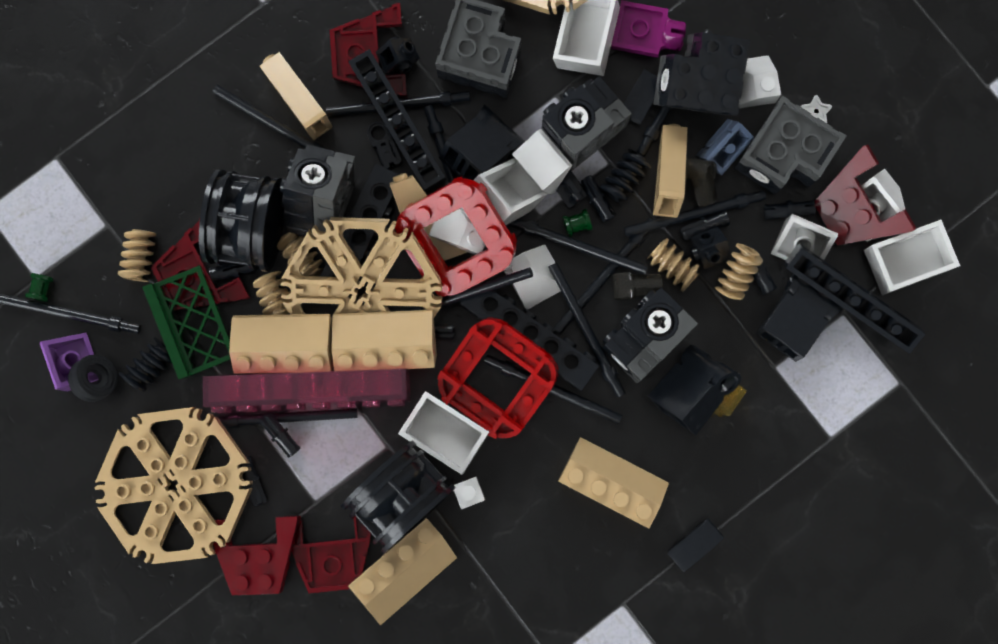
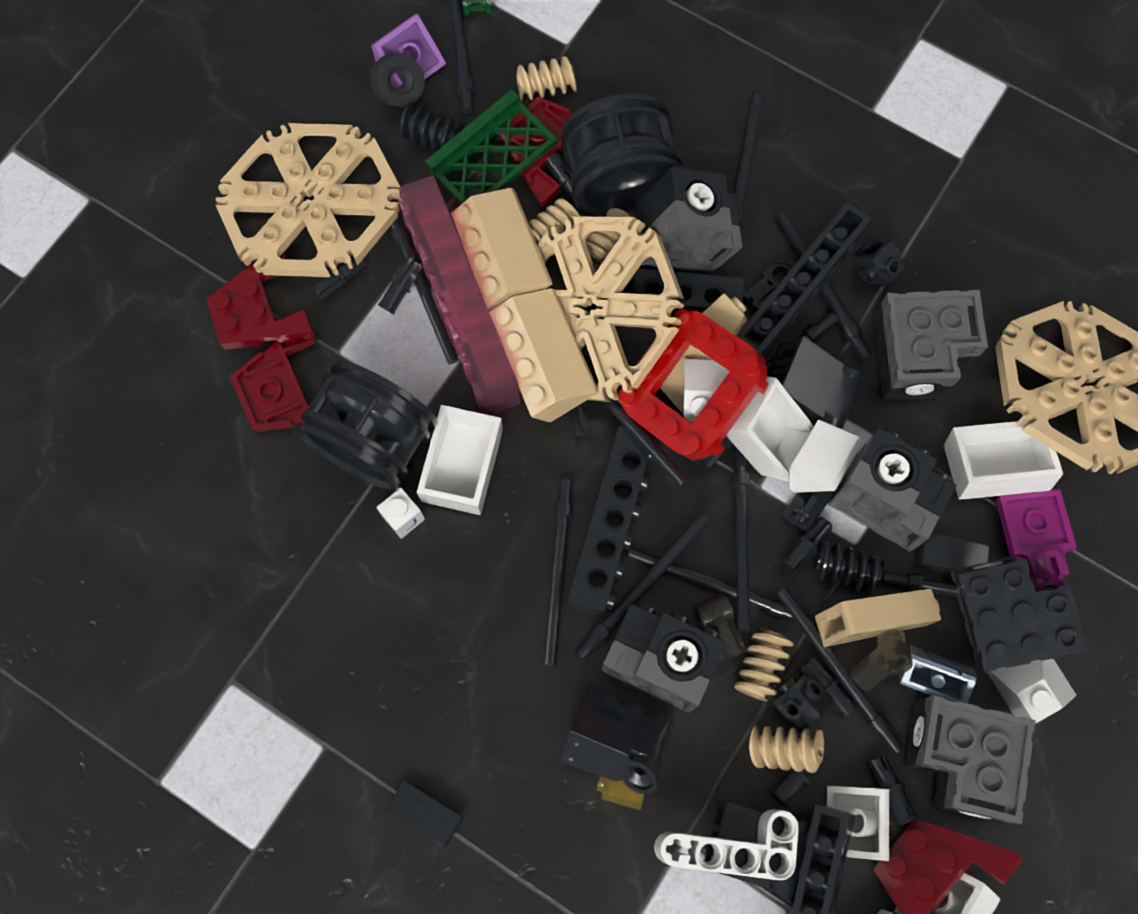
camera: 65 degrees right, 10 degrees down
(296, 95) = (783, 174): tan slope -> none
(359, 36) = (885, 222): dark red wing -> none
(403, 571) = (284, 468): tan slope -> none
(477, 406) = (562, 547): red plate -> none
(542, 284) = (678, 508): white slope -> none
(577, 223) = (768, 530): dark green bush -> none
(614, 482) = (468, 682): tan slope -> none
(795, 340) = (725, 850): none -> white beam
(822, 108) = (1043, 780): white plate -> none

